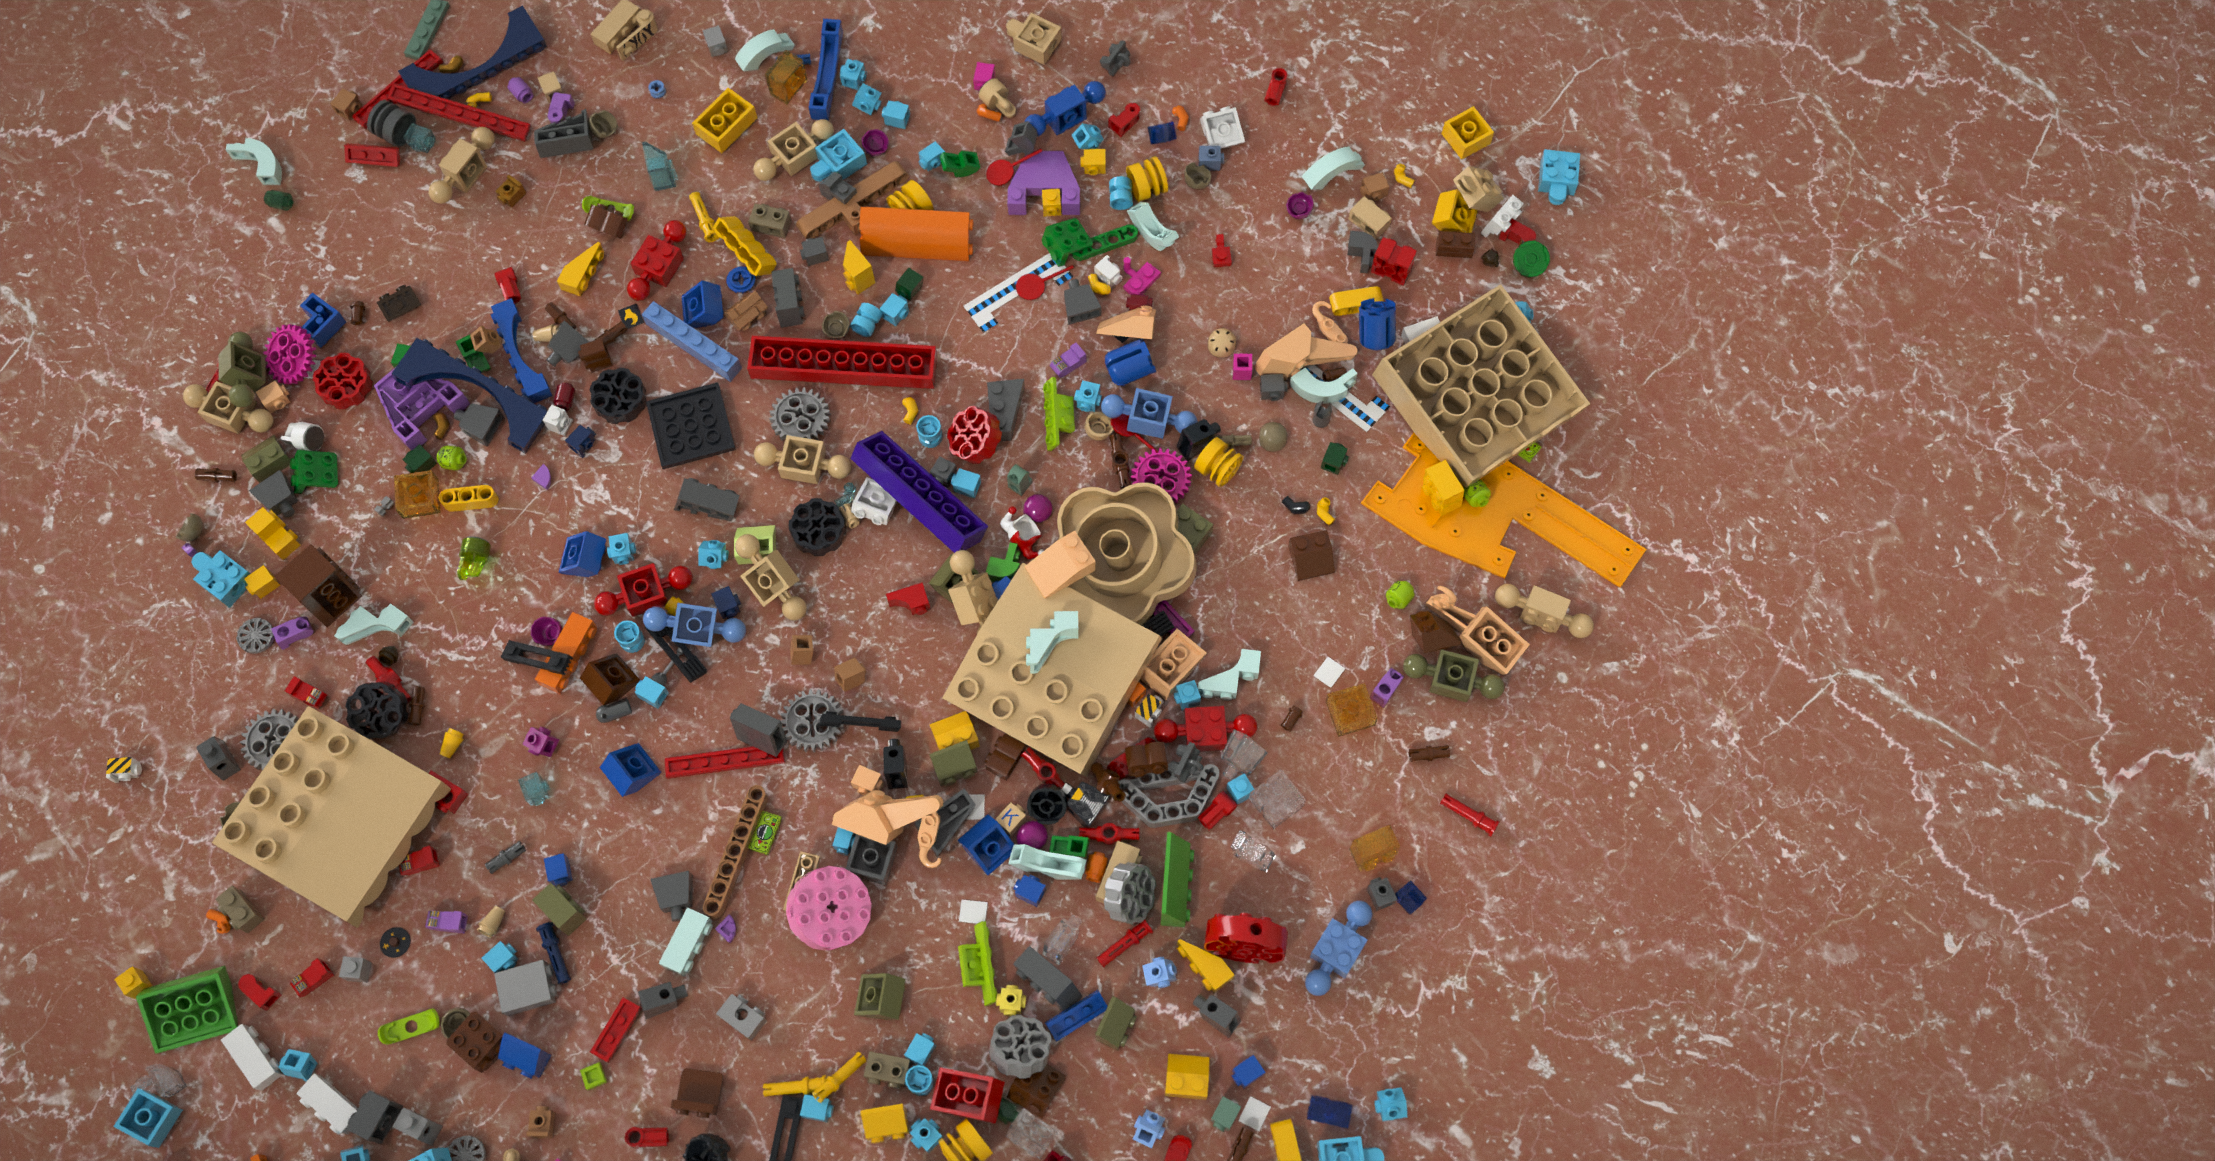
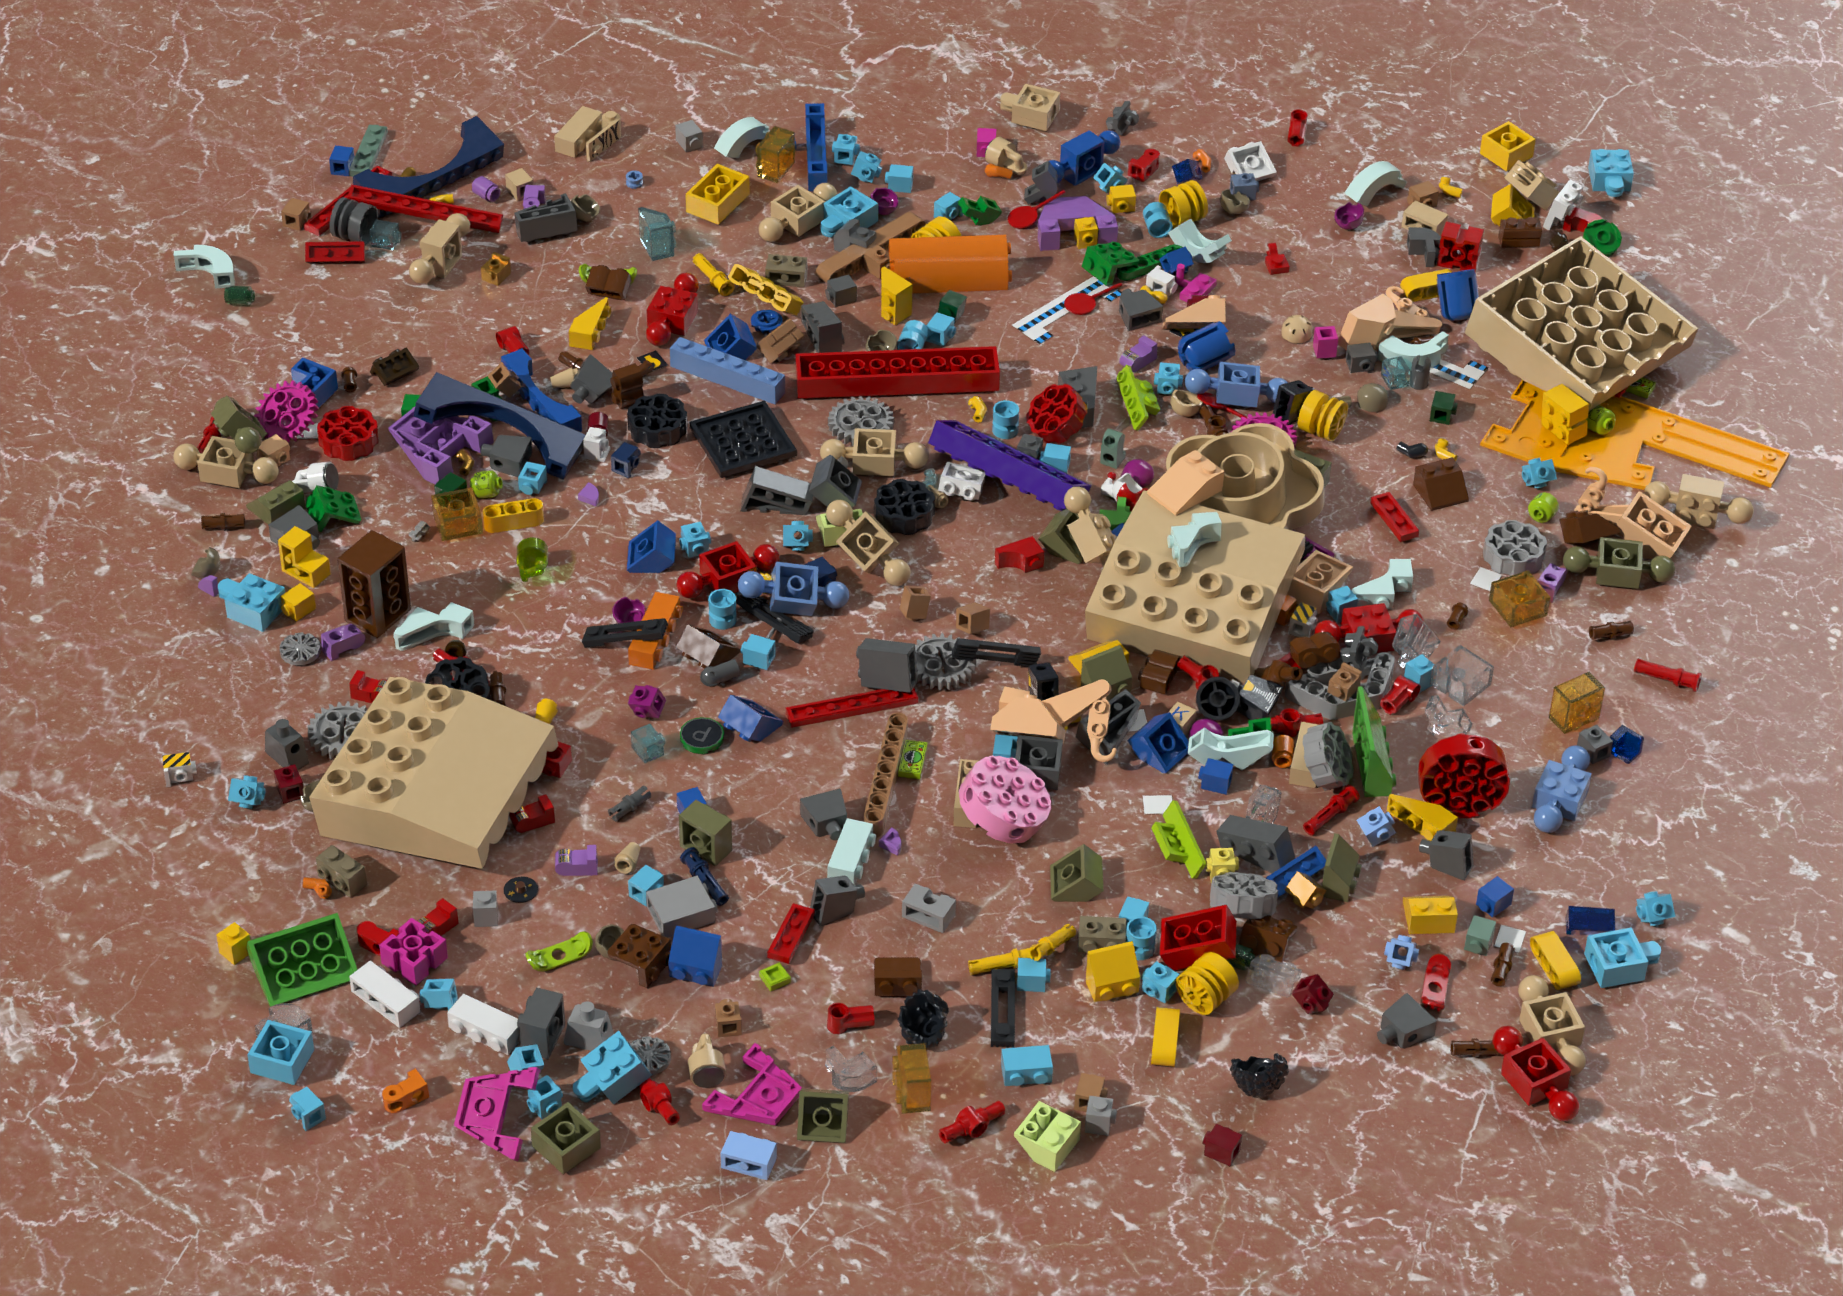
camera: 10 degrees left, 25 degrees down
(174, 806) = (246, 791): none -> medium azure brick
(214, 798) = (288, 783): none -> dark red brick
(280, 1027) = (413, 951): none -> dark pink brick
(397, 40) = (341, 160): none -> blue brick
(493, 450) = (531, 483): none -> medium azure brick
(585, 781) = (701, 735): none -> black tile
(757, 498) = (834, 481): none -> dark grey hinge
(1079, 1042) = (1305, 891): none -> brick
(1127, 247) = (1172, 259): none -> blue brick
(1163, 812) = (1345, 682): none -> medium nougat brick
(1260, 589) = (1394, 516): none -> red plate
(1300, 410) = (1395, 373): none -> clear light blue brick
(1353, 634) = (1514, 548): none -> light grey connector
(1404, 552) = (1538, 472): none -> medium azure brick

